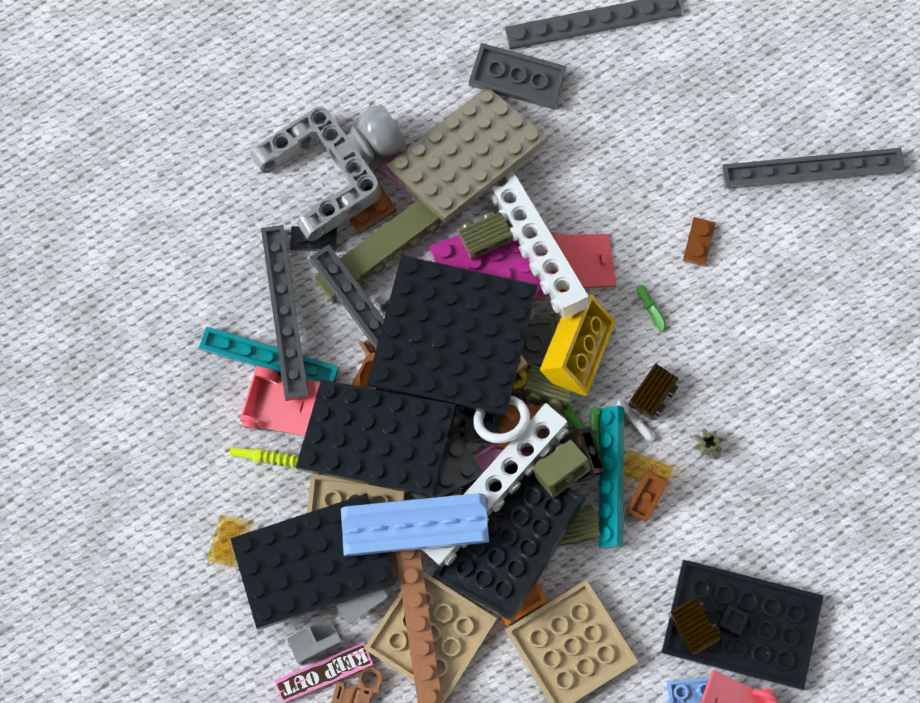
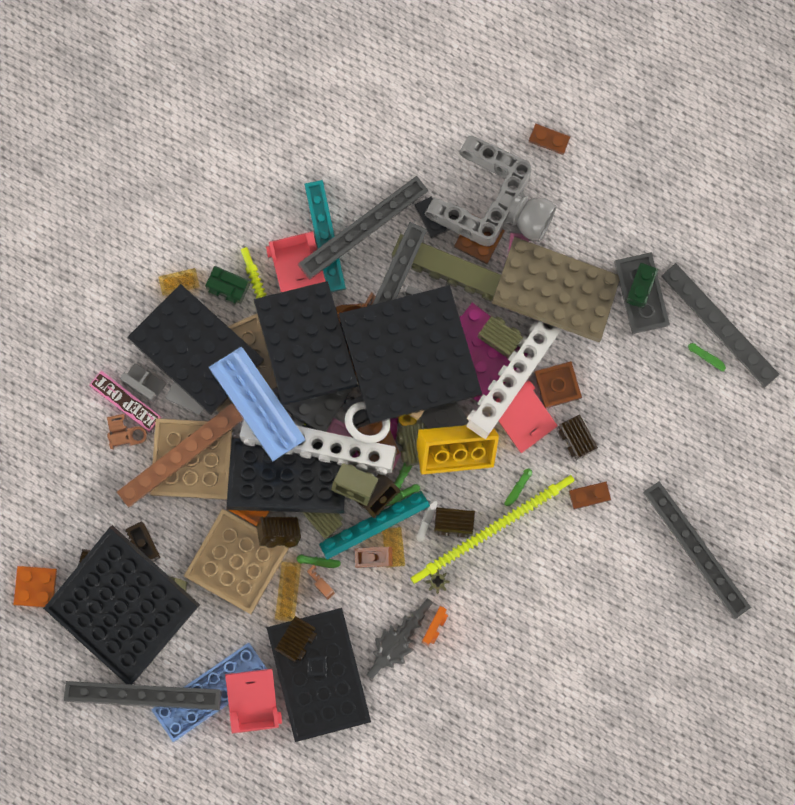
camera: 60 degrees right, 5 degrees up
(261, 489) = (227, 285): none -> dark green brick
(302, 77) = (549, 139): none -> dark orange plate
(512, 68) = (641, 285): none -> dark green brick
(565, 581) = (278, 531): none -> dark brown brick
(566, 208) = (558, 384): none -> dark orange plate
(618, 557) = (323, 562): none -> bright green piece
(619, 50) = (707, 356): none -> bright green piece
(632, 220) = (577, 437): none -> dark brown brick
(633, 608) = (288, 591): none -> clear yellow plate
(649, 566) = (320, 584): none -> nougat piece
(692, 440) = (431, 568): none -> neon yellow hose
(749, 526) = (394, 644): none -> dark grey piece
(760, 476) = (439, 619): none -> orange plate

